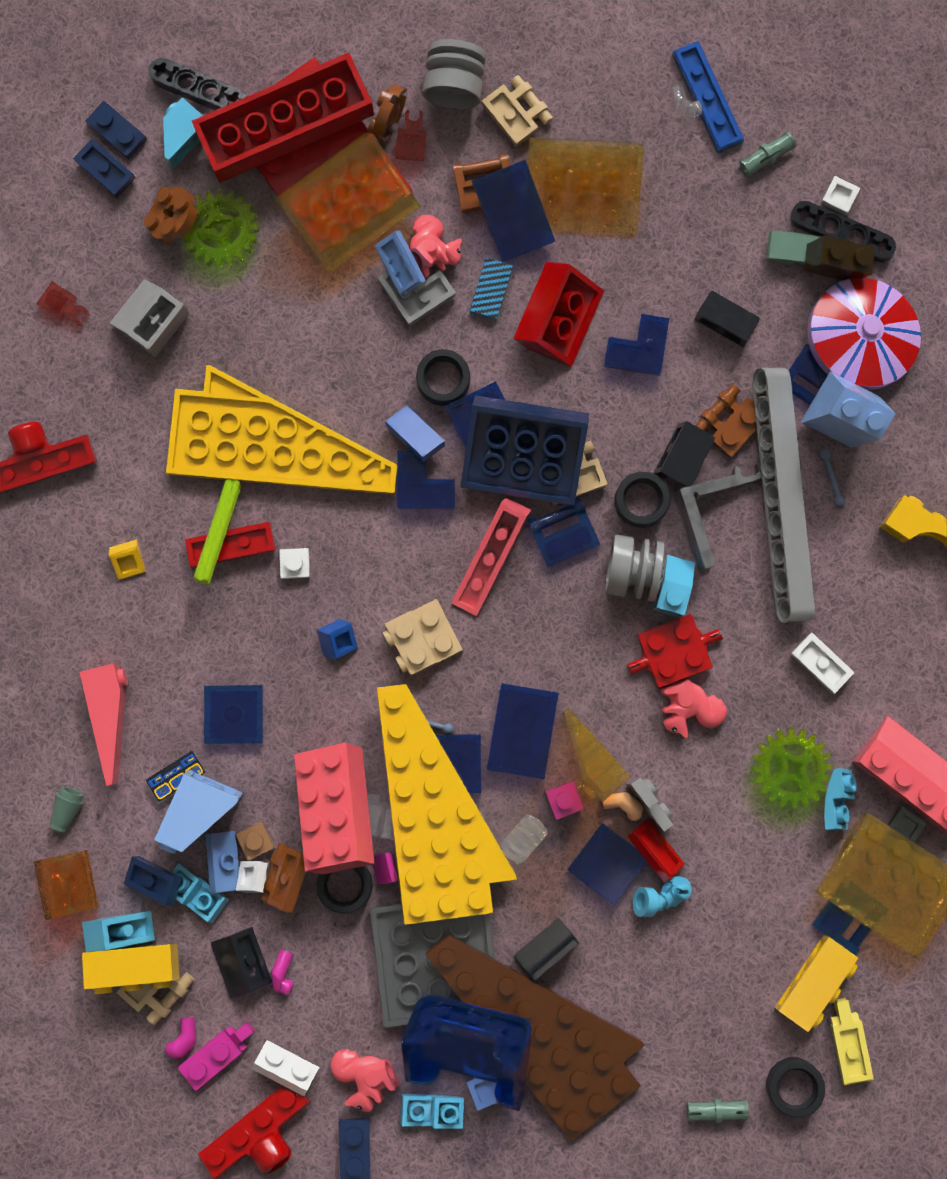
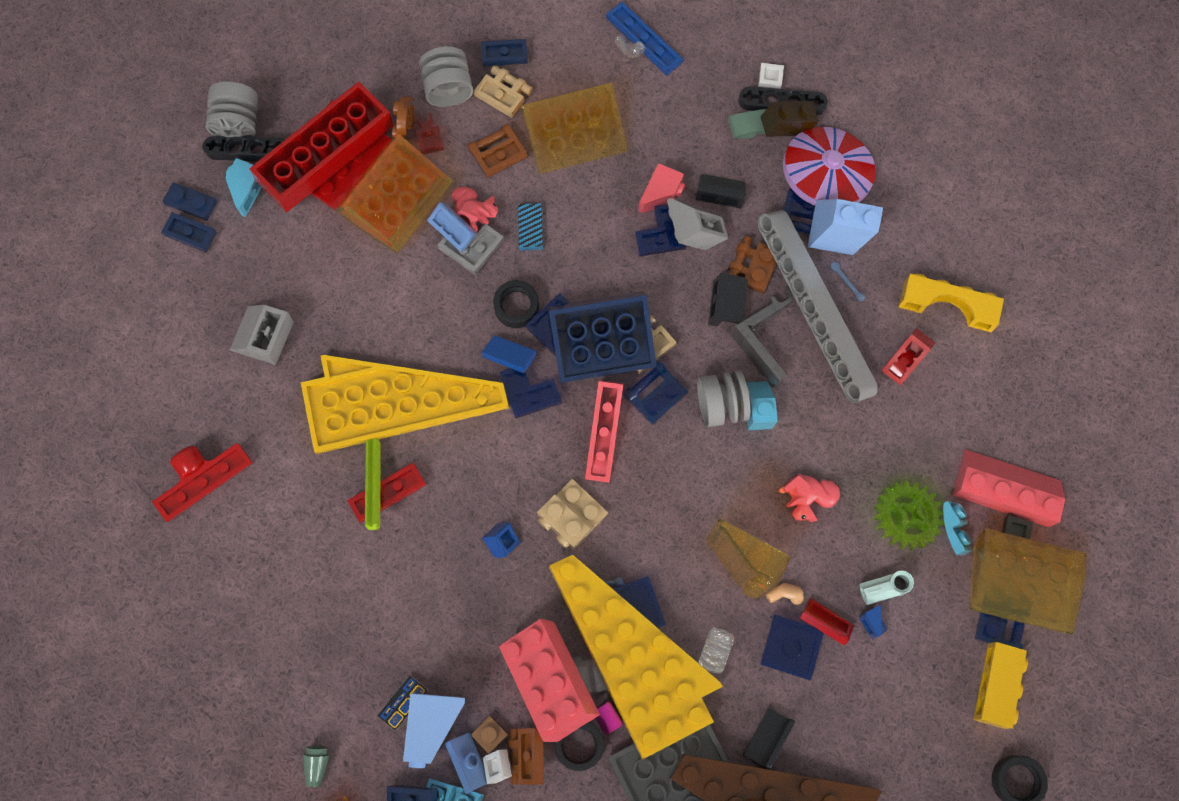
camera: 25 degrees left, 10 degrees down
(60, 303) = (183, 347): clear red plate -> none
(106, 704) = (323, 662): coral slope -> none
(127, 559) = (303, 535): yellow slope -> none
(159, 218) = (246, 255): dark orange plate -> none
(194, 37) = (231, 110): none -> light grey wheel
(230, 227) = (295, 236): clear neon green gear -> none
(233, 714) = (435, 633): clear blue plate -> none
(294, 563) = (445, 490): white plate -> none
(514, 210) = (527, 160): clear blue plate -> none
(522, 731) = (681, 562): clear blue plate -> none
(535, 62) = (504, 52): none -> dark blue plate
(559, 313) = (589, 226): red slope -> none
(564, 800) = (736, 606): dark pink brick -> none
(645, 793) = (802, 576): light grey plate -> none
(652, 480) = (710, 328): black tyre -> none
(658, 294) = (663, 185): none -> coral slope
(673, 892) = (837, 667): medium azure arm -> none
(674, 651) = (778, 455): red plate -> none
(680, 353) = (695, 225): none -> light grey slope
(707, 868) = (873, 623): none -> blue slope
(732, 836) = (884, 588): none -> light aqua piece
(767, 154) = (704, 64): sand green pin -> none
(822, 663) = (898, 425): white plate -> none
(850, 1045) = (1048, 728): light yellow hinge -> none
(865, 589) = (908, 356): none -> red arch

